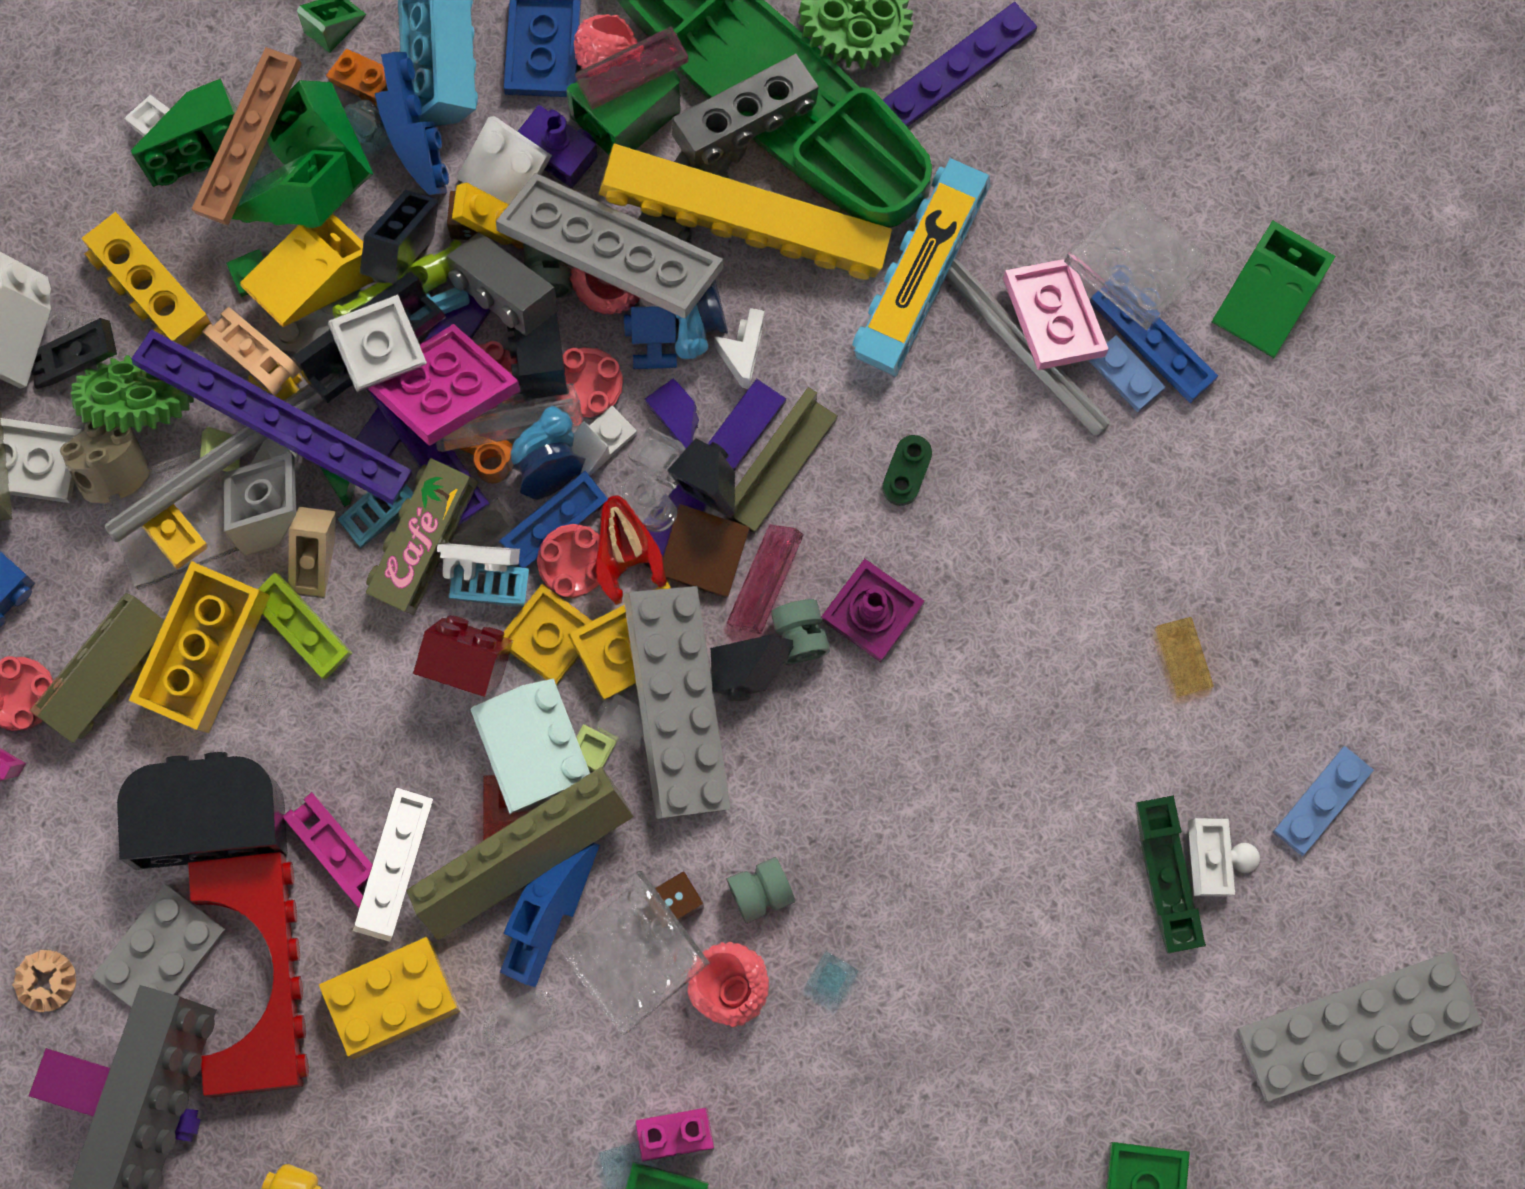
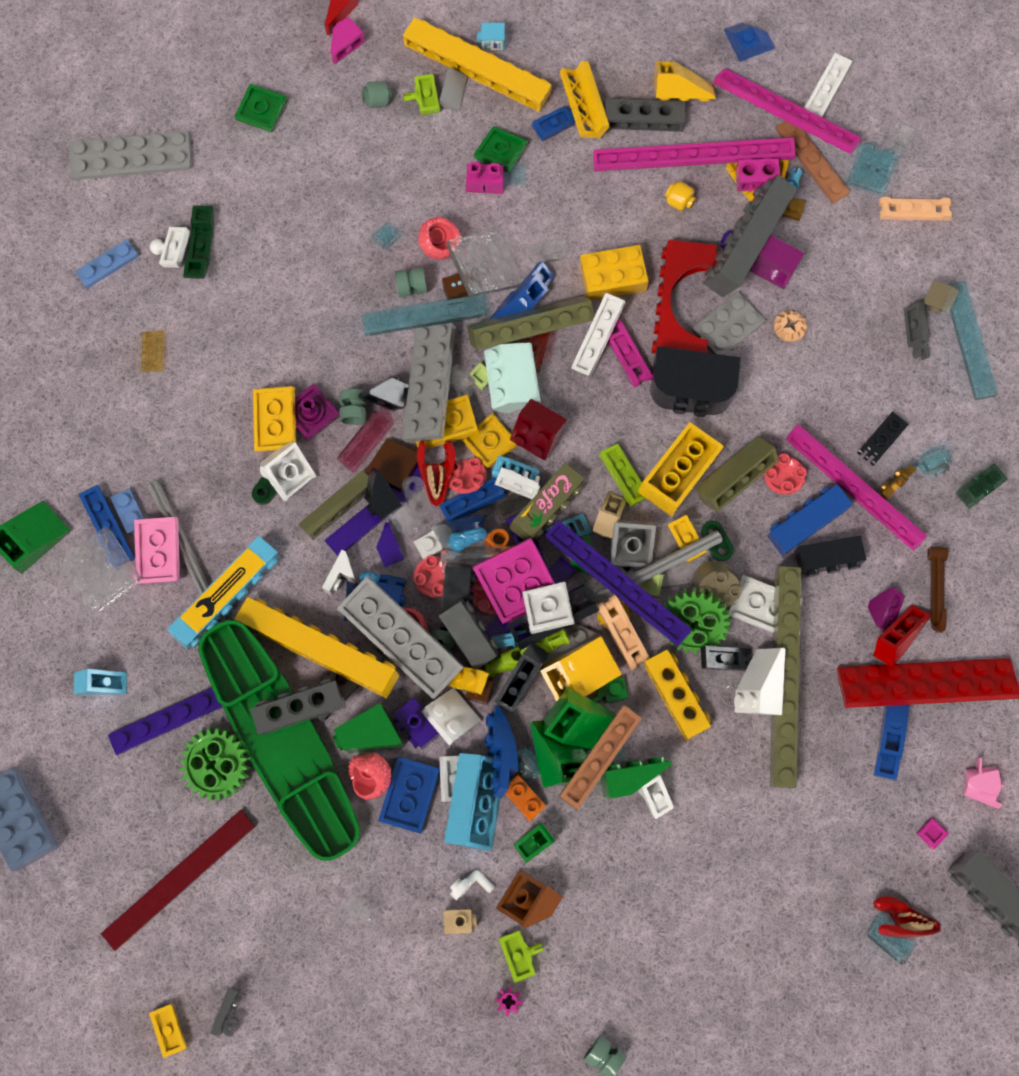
camera: 165 degrees left, 0 degrees up
(115, 550) = (725, 544): none -> dark green plate
(487, 83) = (448, 770): none -> white plate
(631, 67) = (358, 740): clear pink plate -> none
(727, 832) = (423, 315): none -> clear light blue plate
(880, 489) = (287, 470): none -> white slope
(930, 579) = (274, 418): none -> yellow tile
(1076, 94) = (99, 682): none -> medium azure slope

